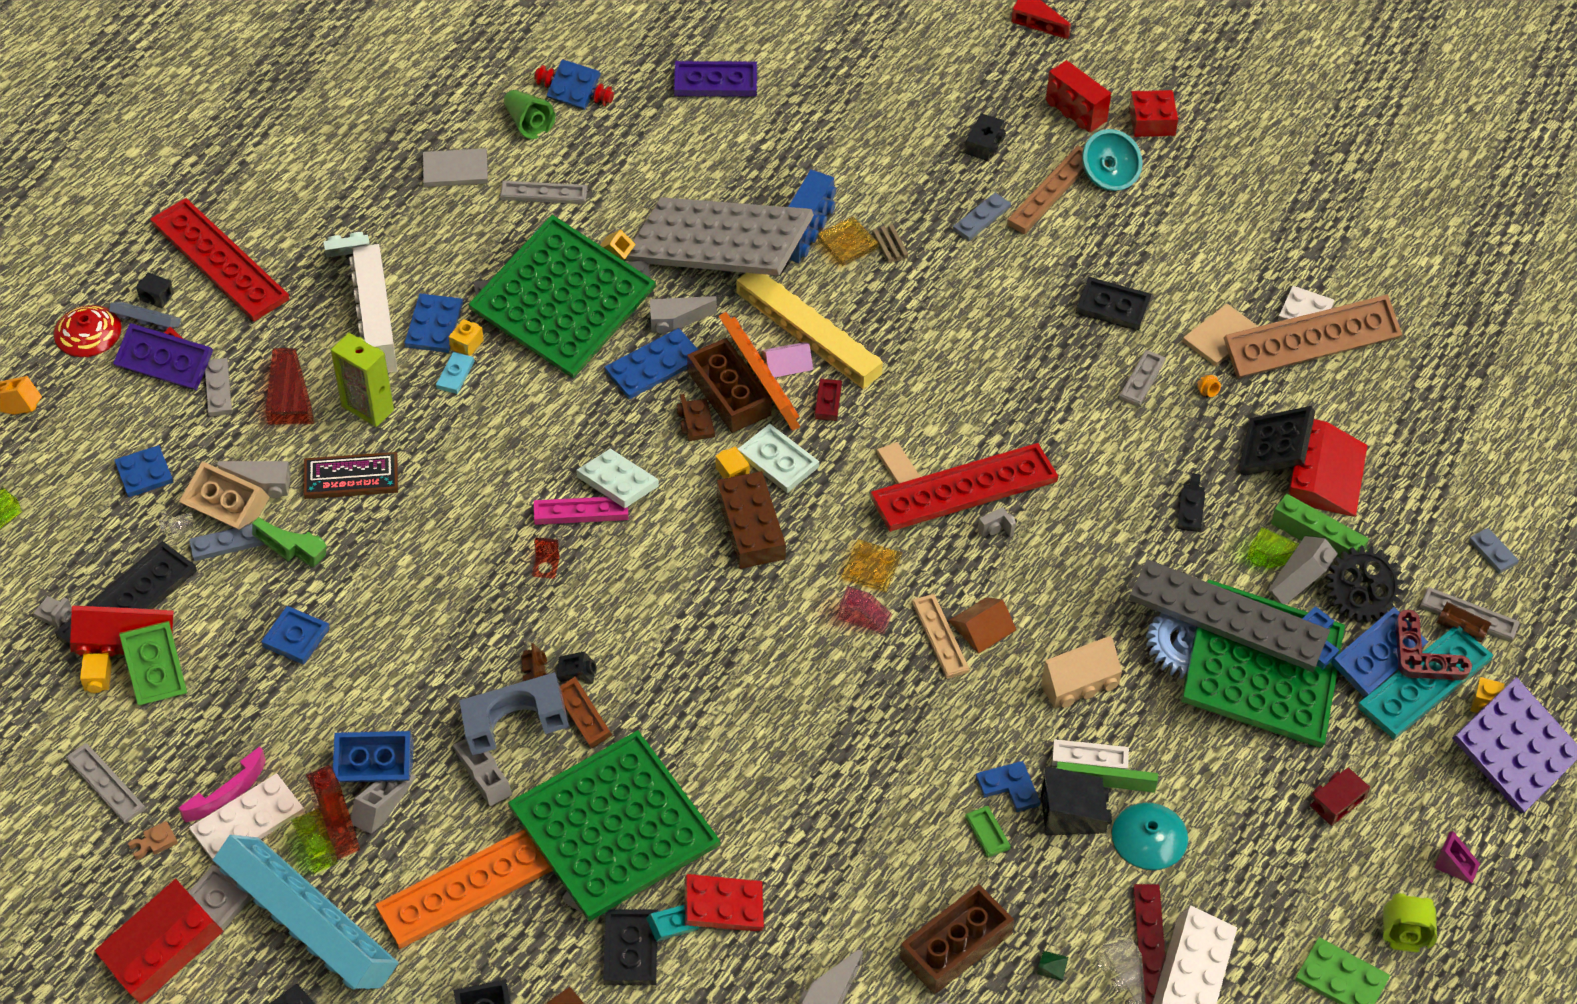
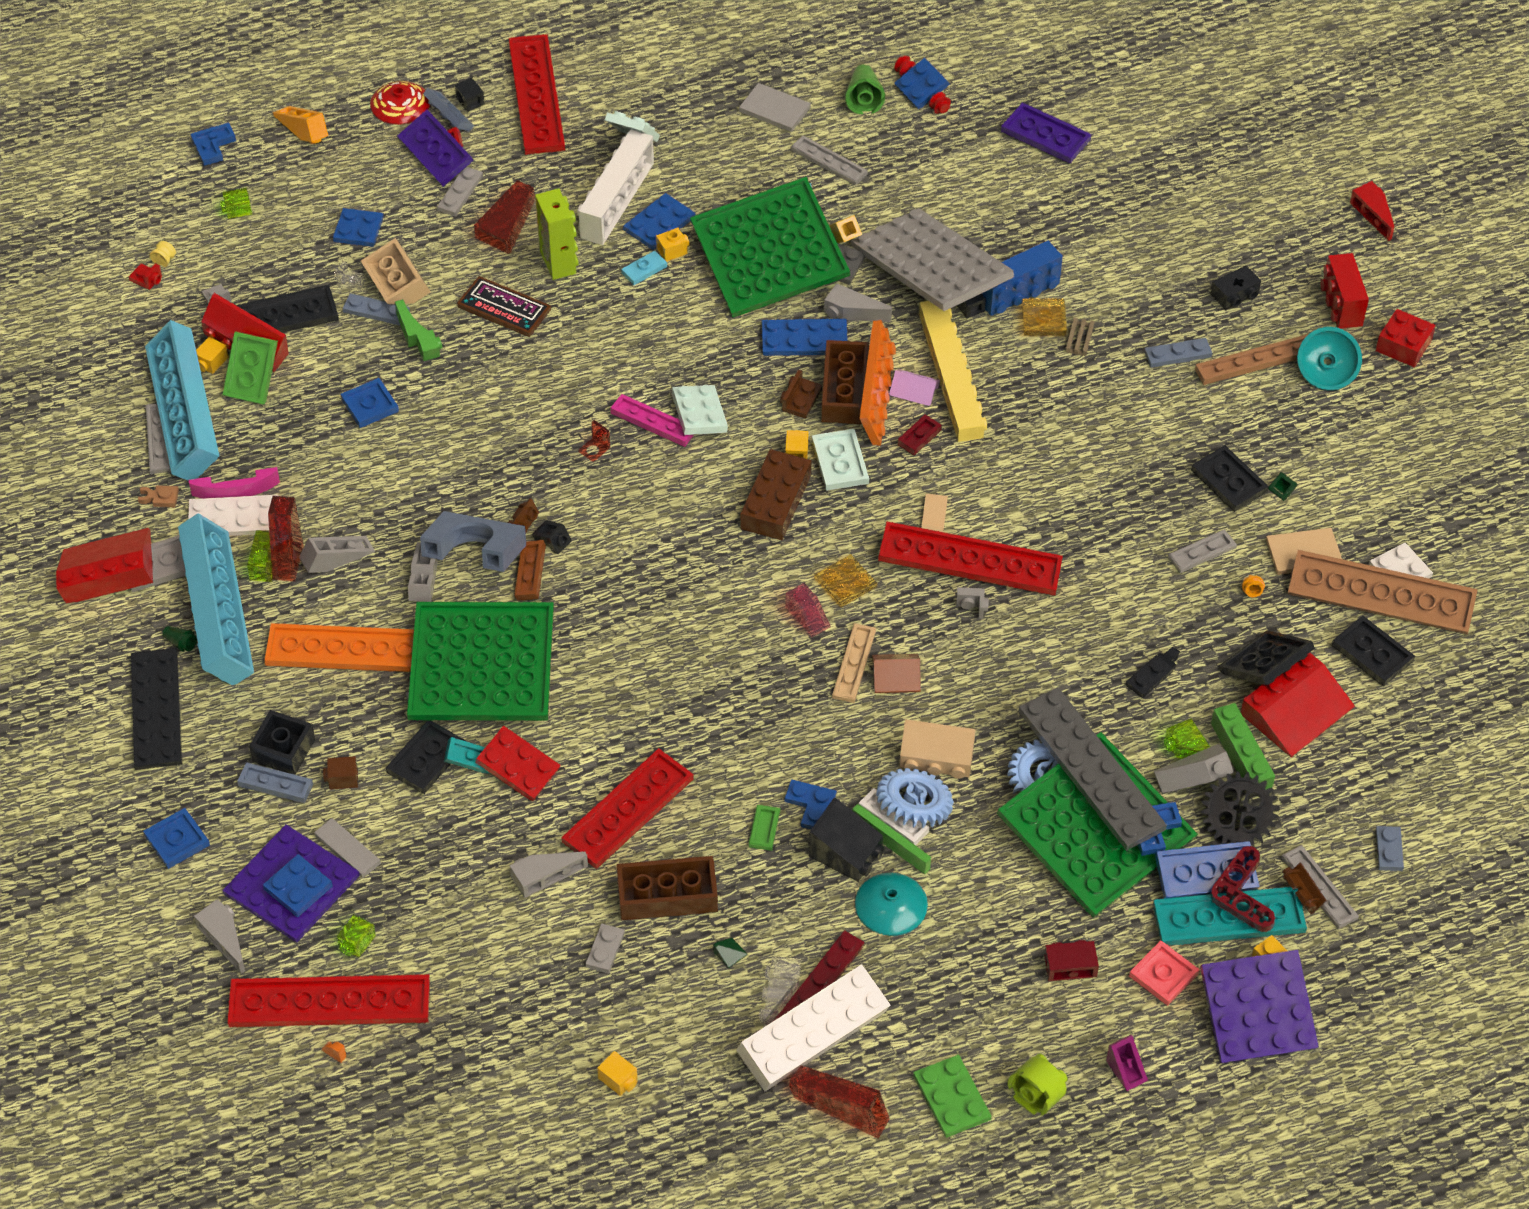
camera: 35 degrees right, 0 degrees up
(108, 733) = (181, 401): none -> medium azure brick
(269, 475) = (437, 274): light grey slope -> none
(292, 971) = (180, 638): none -> dark green cone
(373, 756) = (350, 518): blue slope -> none
(855, 886) = (627, 808): none -> red plate
(1097, 733) = (912, 804): none -> light blue gear
(1160, 287) = (1284, 485): none -> dark green slope
(1344, 390) = (1373, 650): none -> black plate
(1417, 761) = (1164, 973): none -> coral plate

